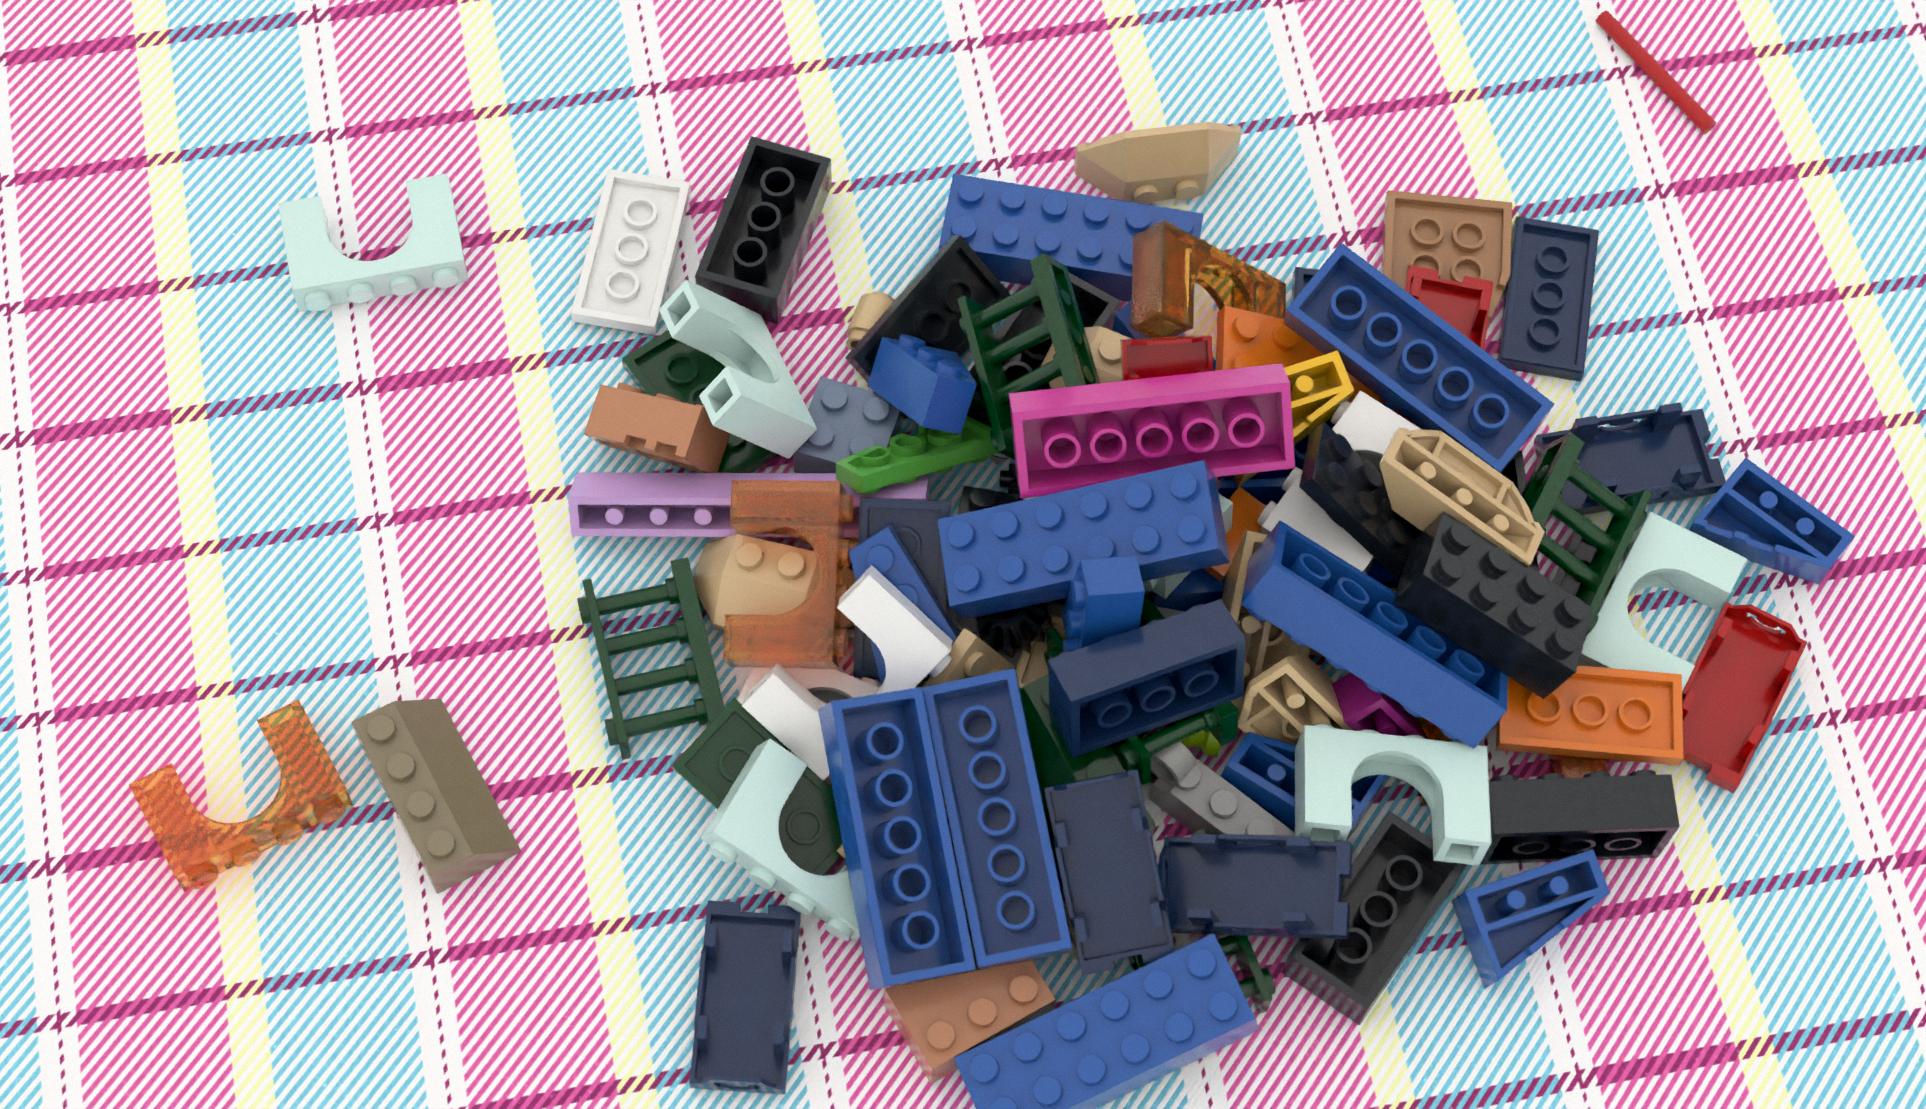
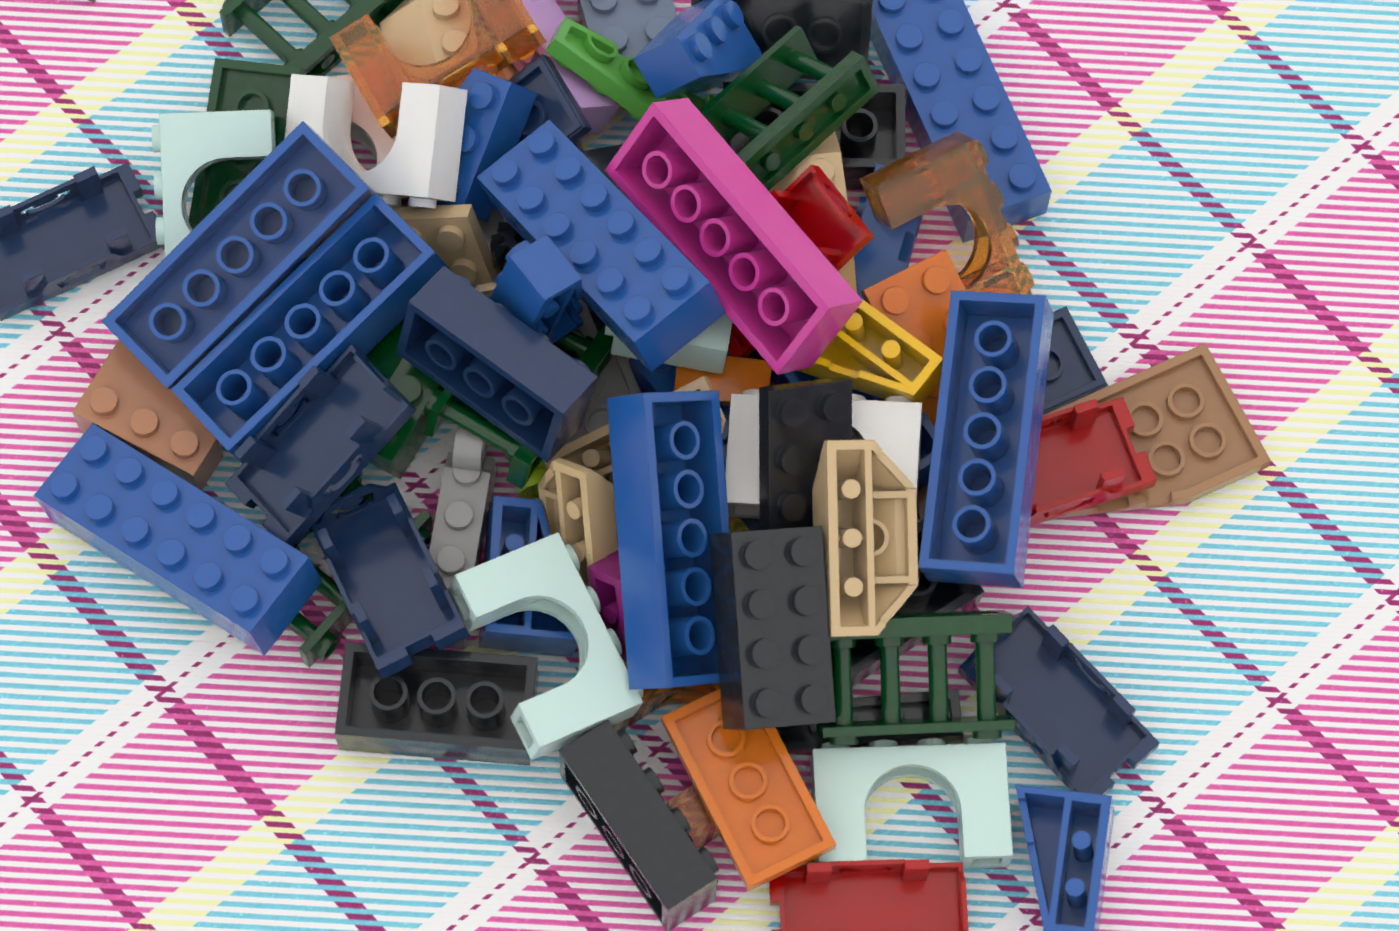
camera: 60 degrees right, 5 degrees up
(1158, 161) = (1094, 137): tan wedge -> none
(1524, 911) = (524, 831): blue wedge -> none
(1548, 299) = (1195, 549): dark blue tile -> none

